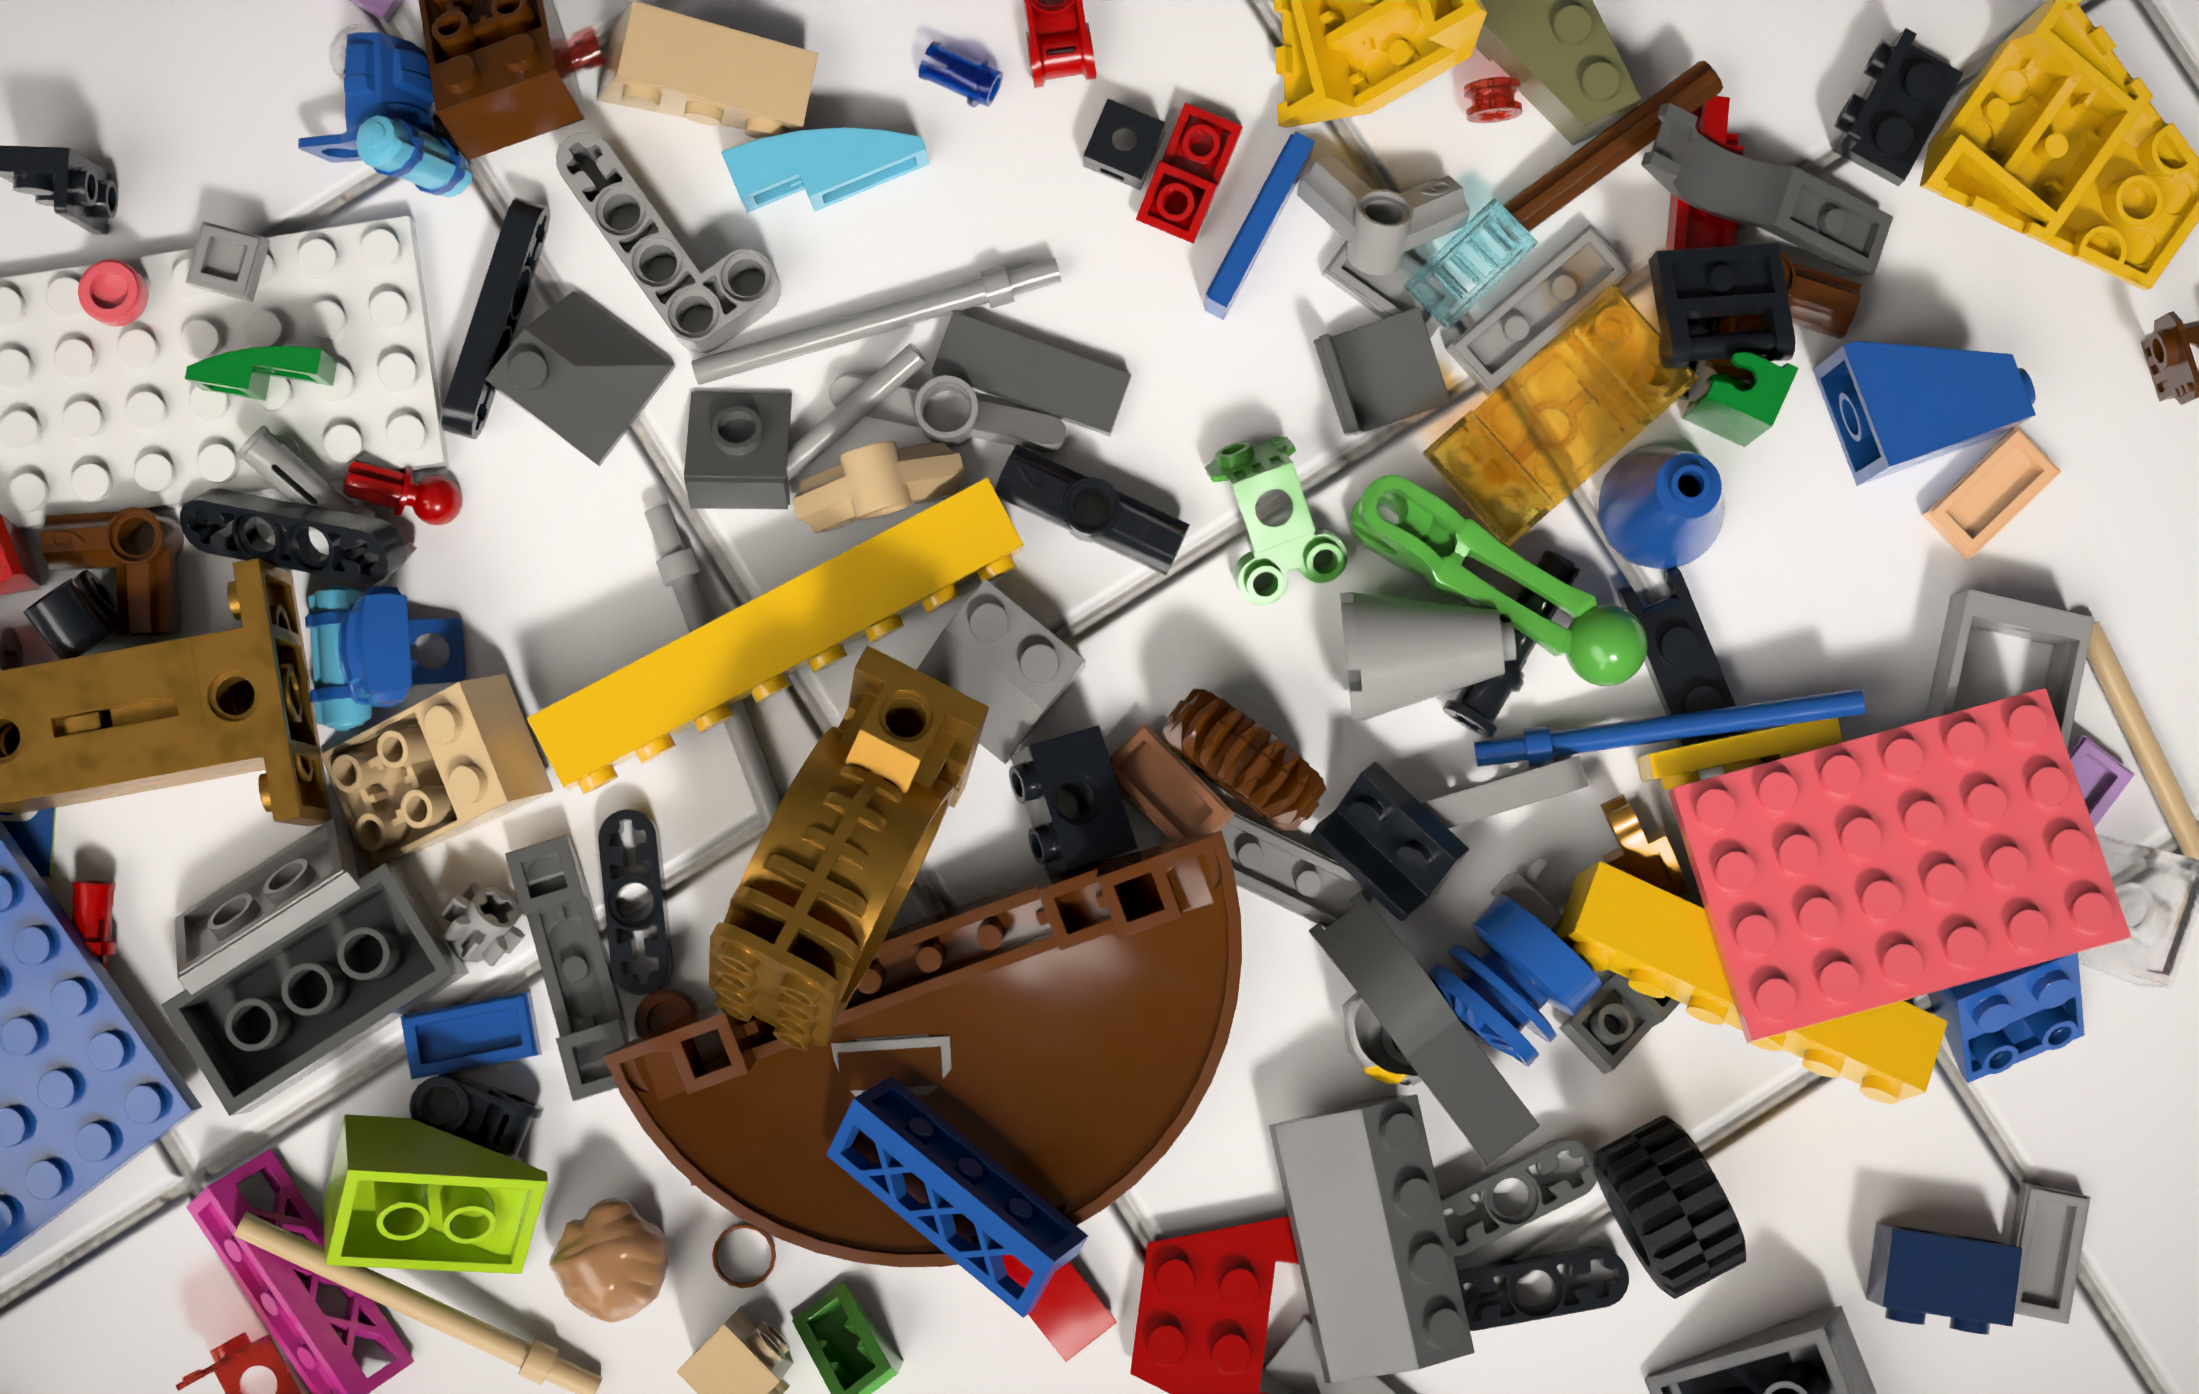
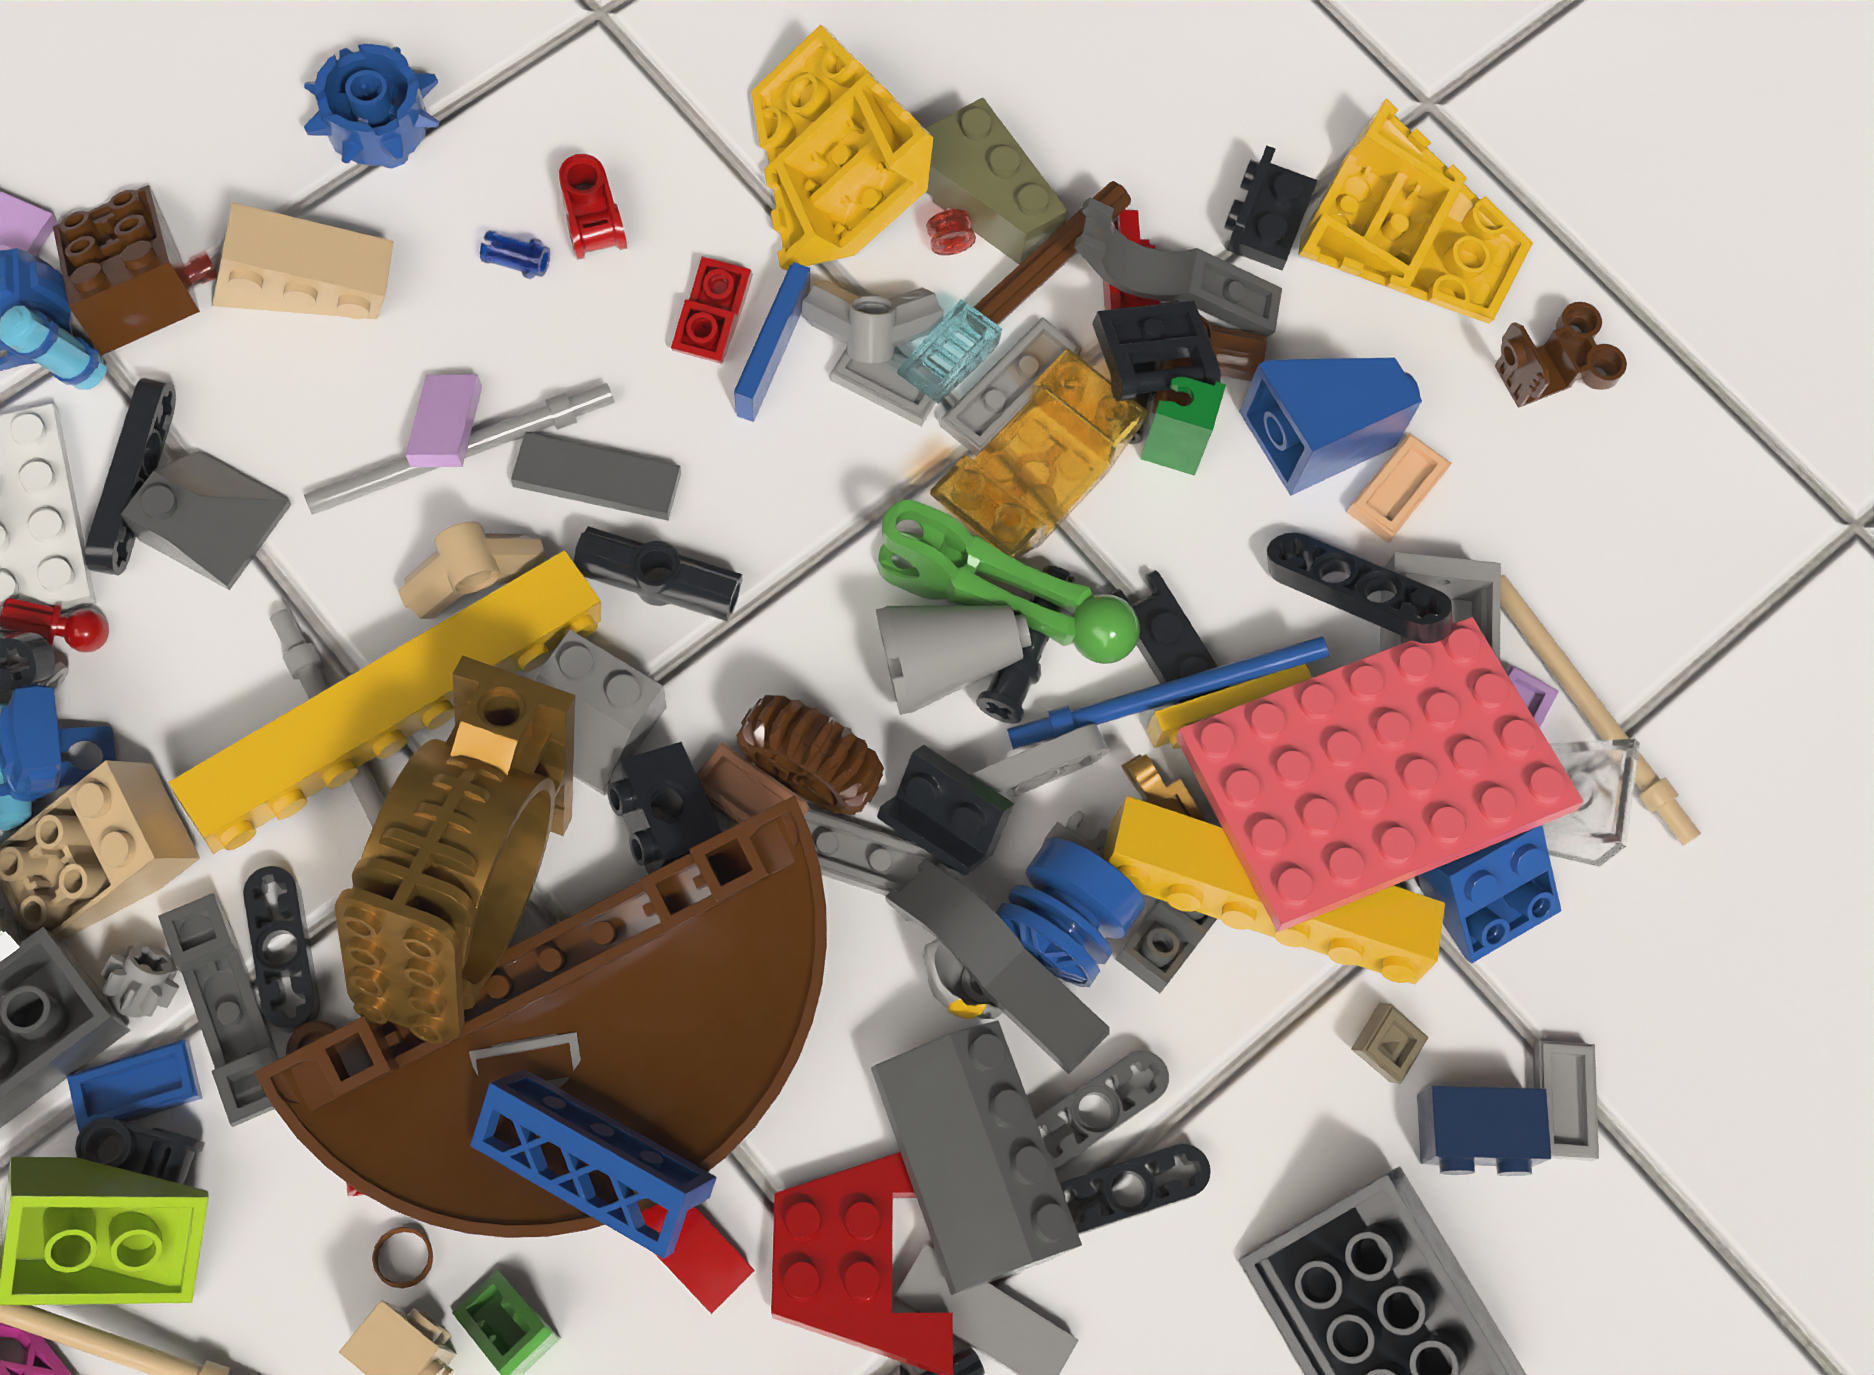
camera: 15 degrees left, 15 degrees down
(610, 1261) = (274, 1272): medium nougat hair -> none
(653, 239) = (264, 400): light grey beam -> none
(738, 450) = (349, 564): dark grey piece -> none
(823, 162) = (404, 328): medium azure slope -> none
(854, 409) = (440, 520): light grey bar -> none
(860, 288) = (444, 421): none -> lavender tile
(985, 422) = (494, 510): light grey piece -> none
(1124, 166) = (663, 305): black piece -> none
(1280, 546) = (820, 581): piece -> none
(1382, 372) = (890, 443): dark grey piece -> none
(1661, 506) = (1137, 517): blue cone -> none
(1670, 1206) = (1235, 1088): black tyre -> none
(1855, 1165) = (1389, 1043): none -> dark tan tile
(1923, 622) = (1364, 579): none -> black beam

